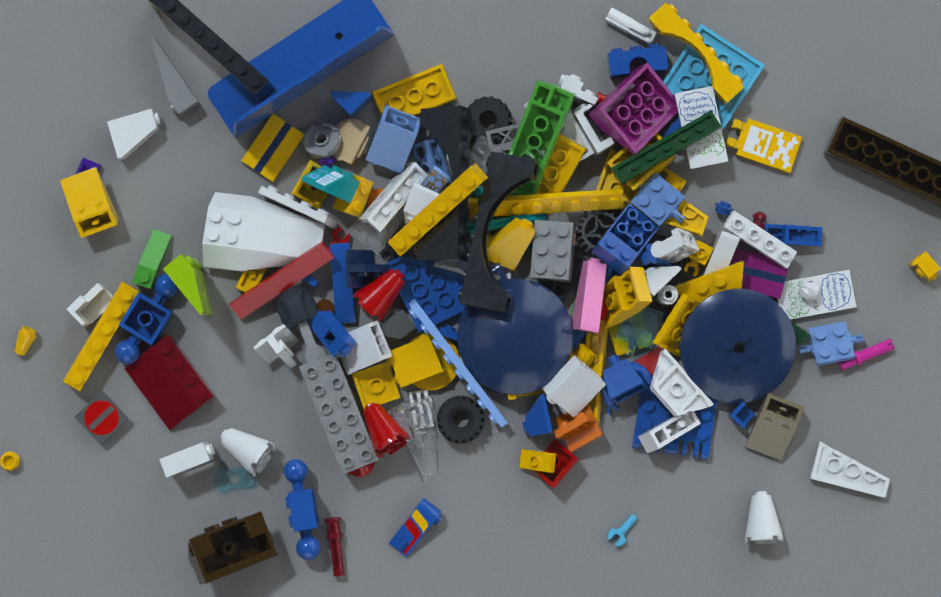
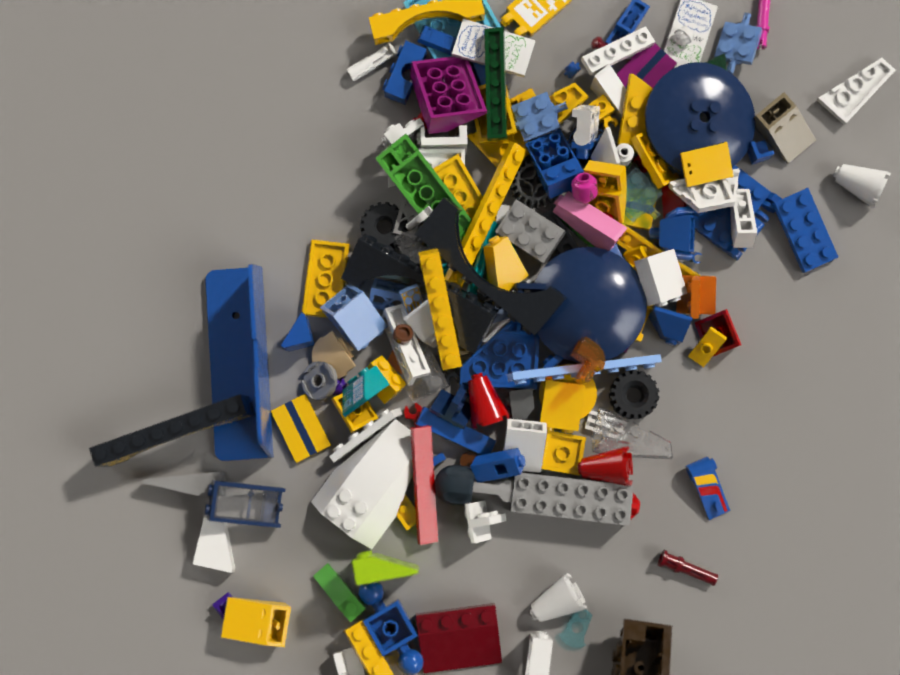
camera: 60 degrees left, 5 degrees down
(181, 136) = (244, 503): none -> clear door
(303, 509) = (638, 578): blue brick -> none
(400, 190) = (403, 334): none -> reddish brown tile
(468, 362) = (591, 357): none -> clear orange brick
(508, 148) = (419, 218): none -> white bar
(614, 276) = (584, 187): none -> dark pink head
(622, 530) = (806, 309): medium azure bar -> none
(682, 73) = (437, 40): none -> blue tile
(691, 492) = (805, 230): none -> blue plate
(698, 373) = (706, 164): none -> yellow container

